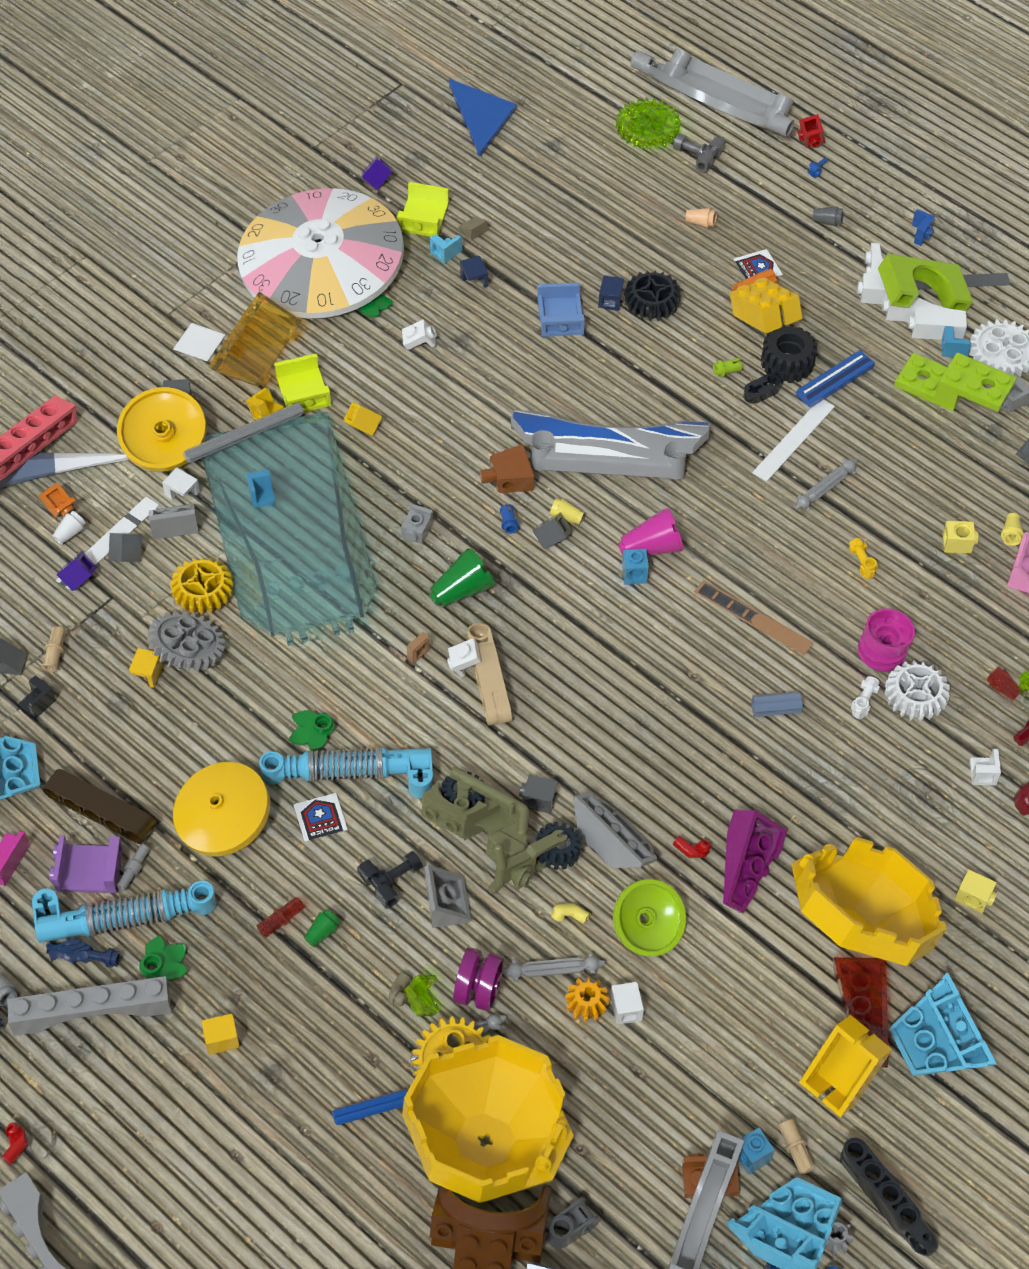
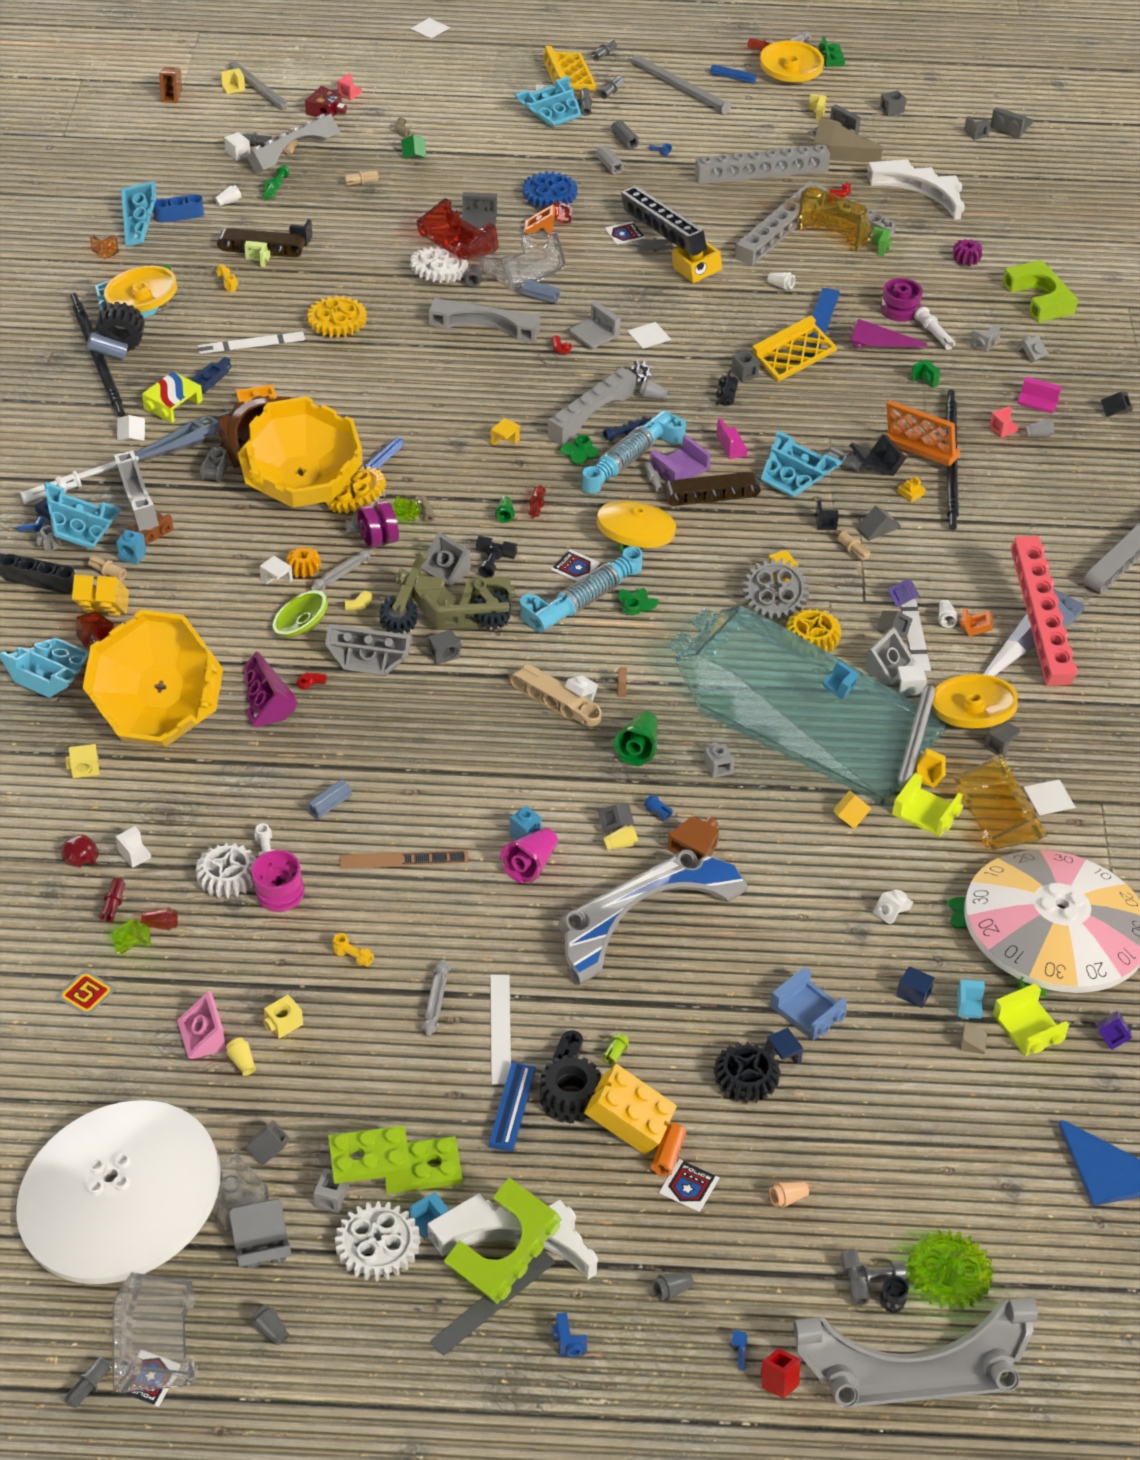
camera: 140 degrees right, 10 degrees down
(697, 131) = (894, 1294): none -> black wheel

